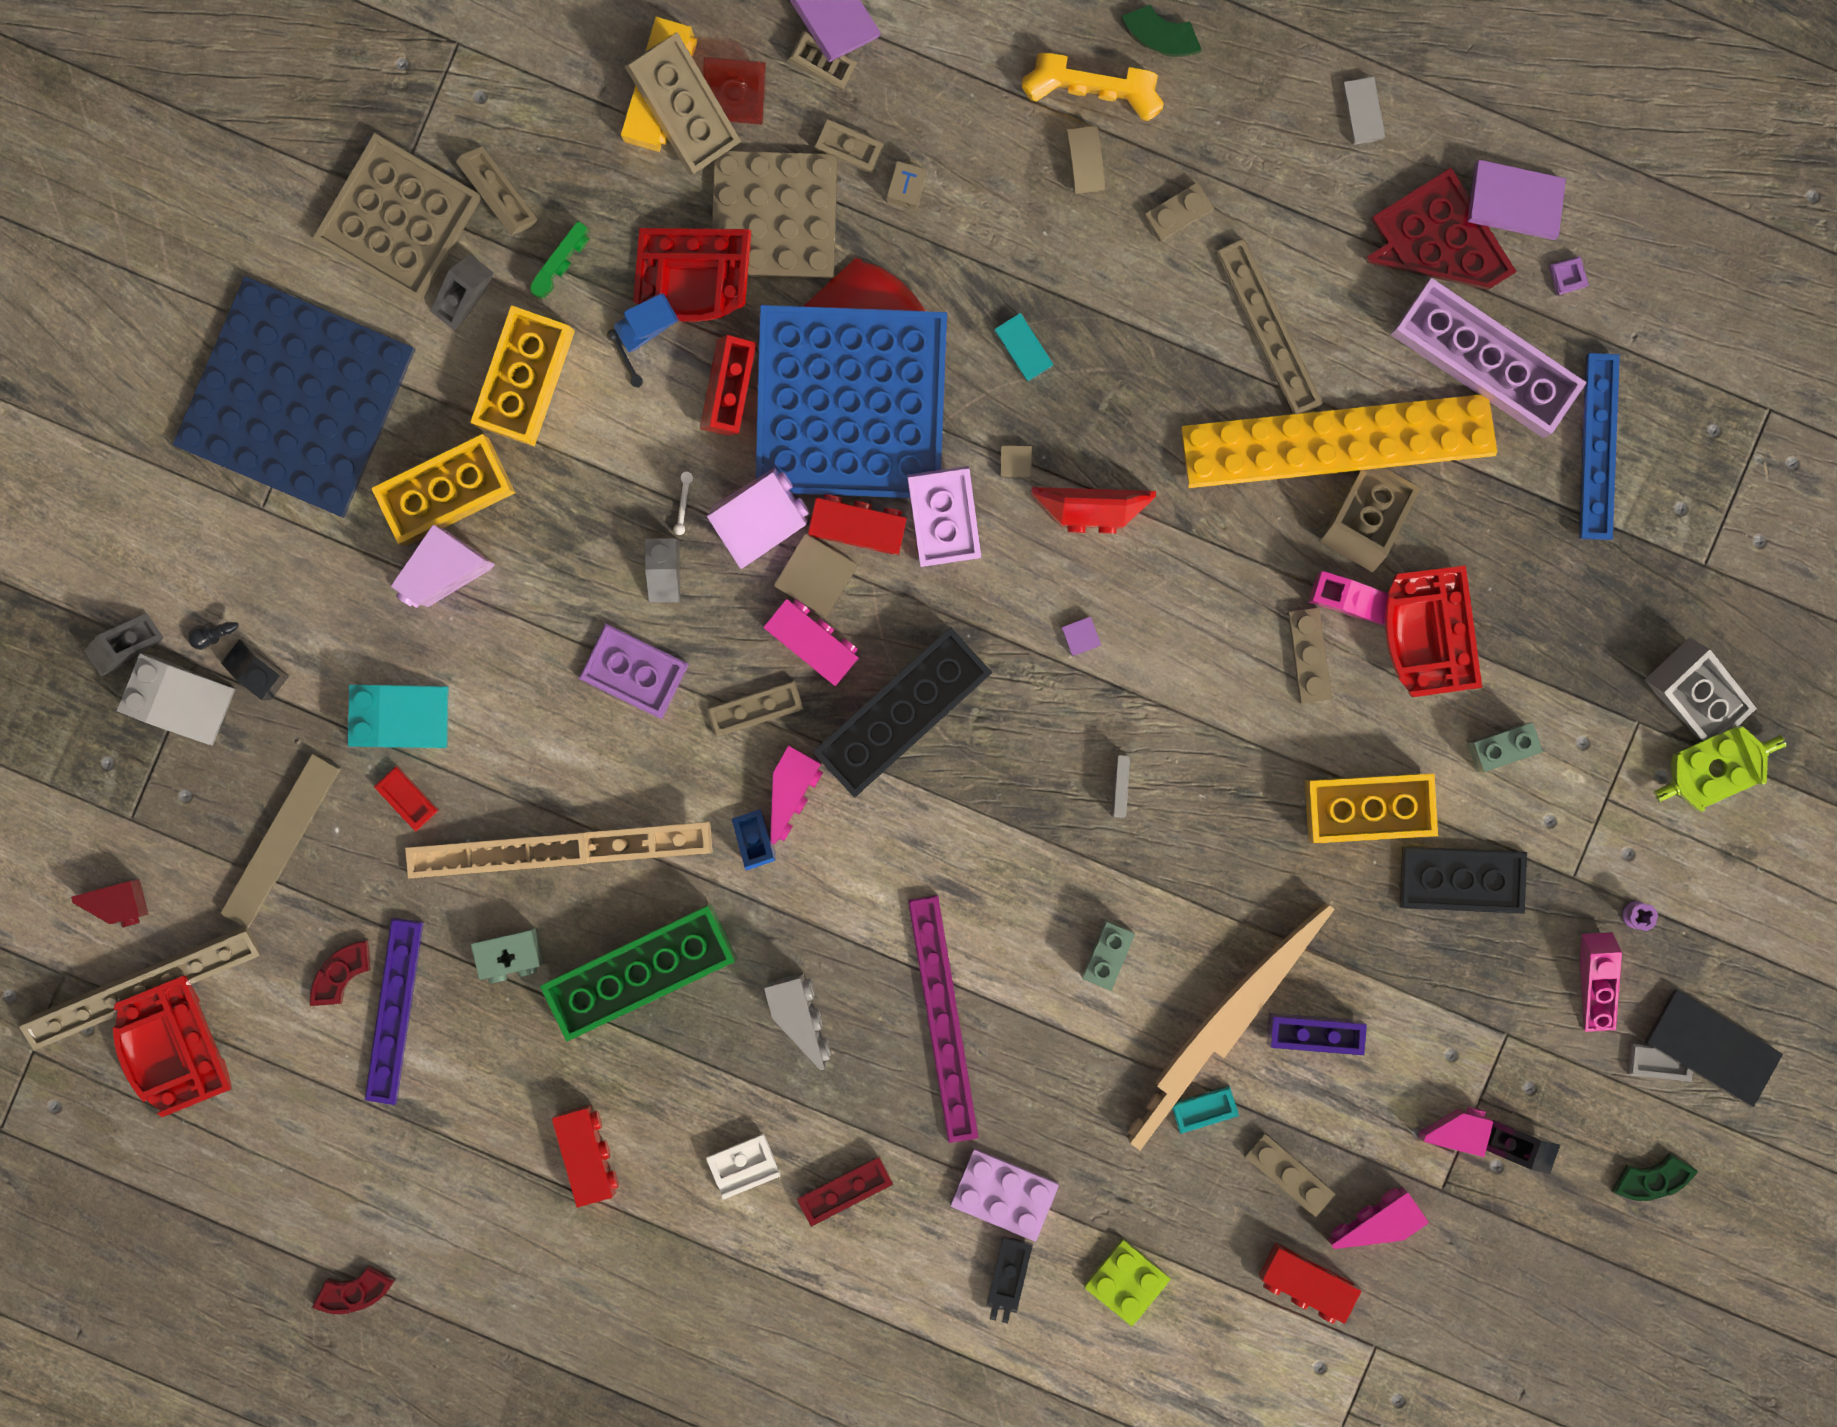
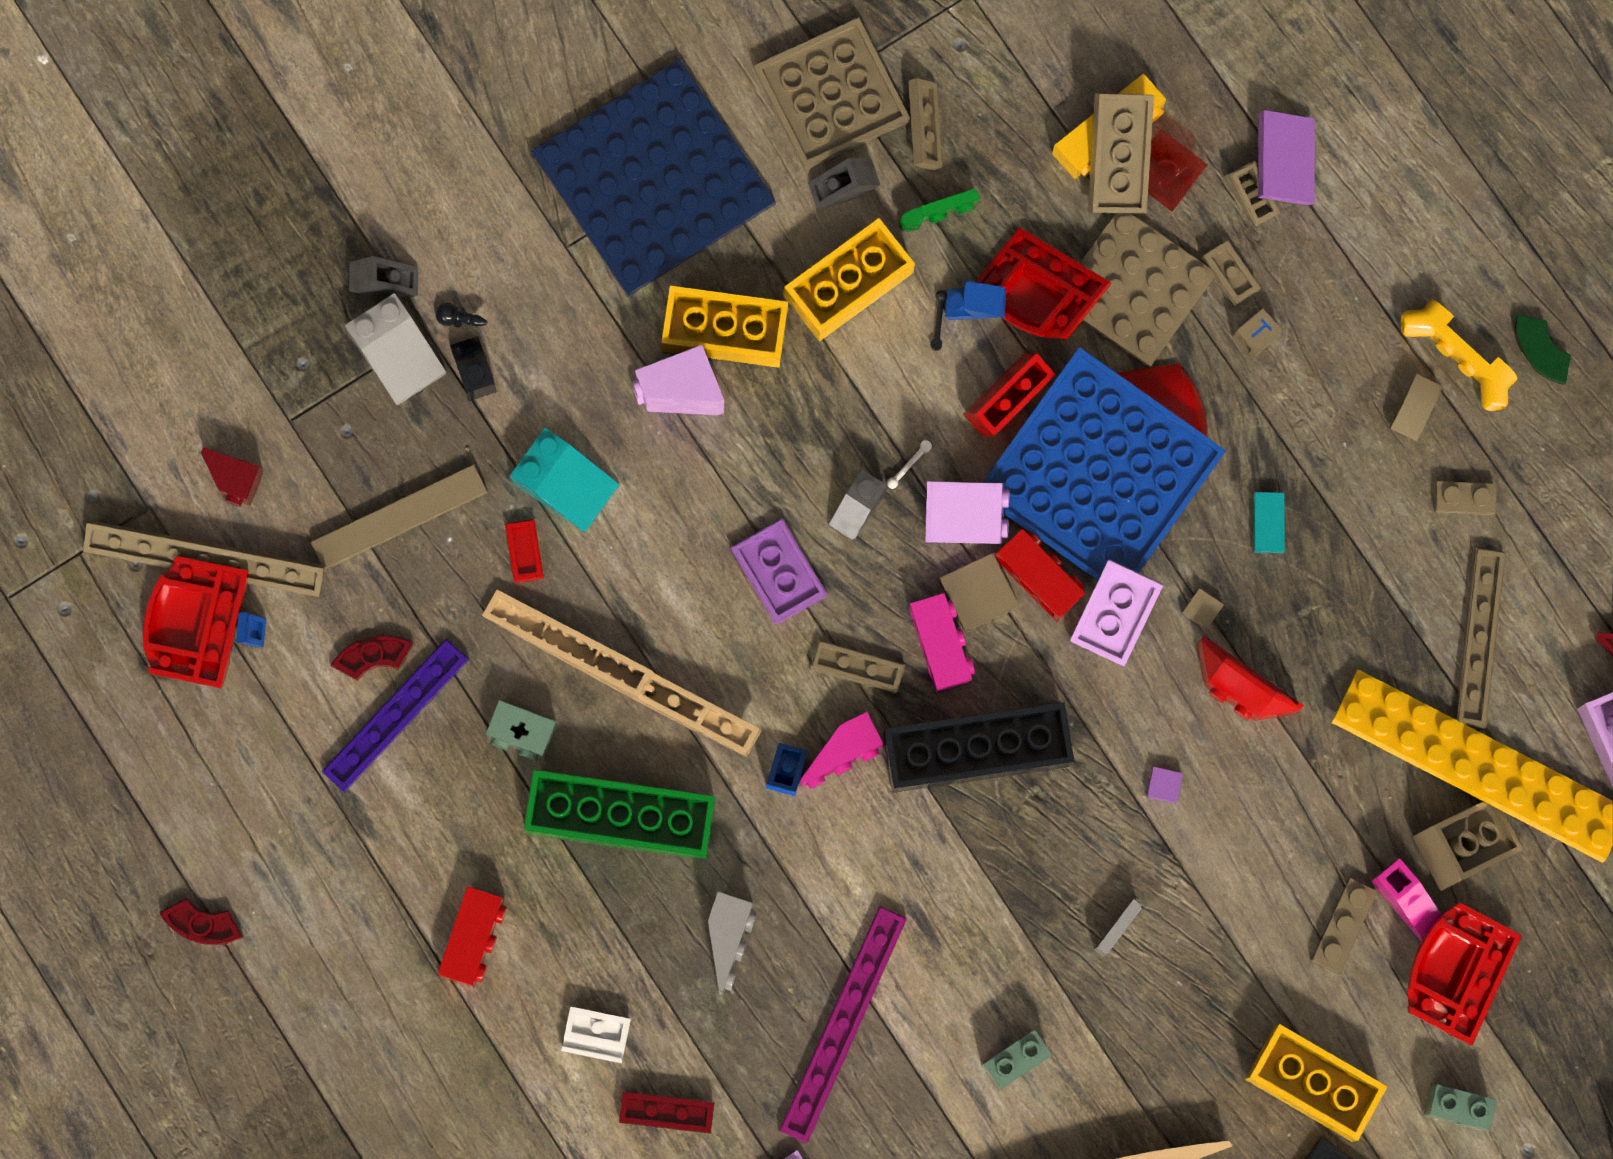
camera: 30 degrees right, 10 degrees down
(221, 1022) = (251, 629): none -> blue tile

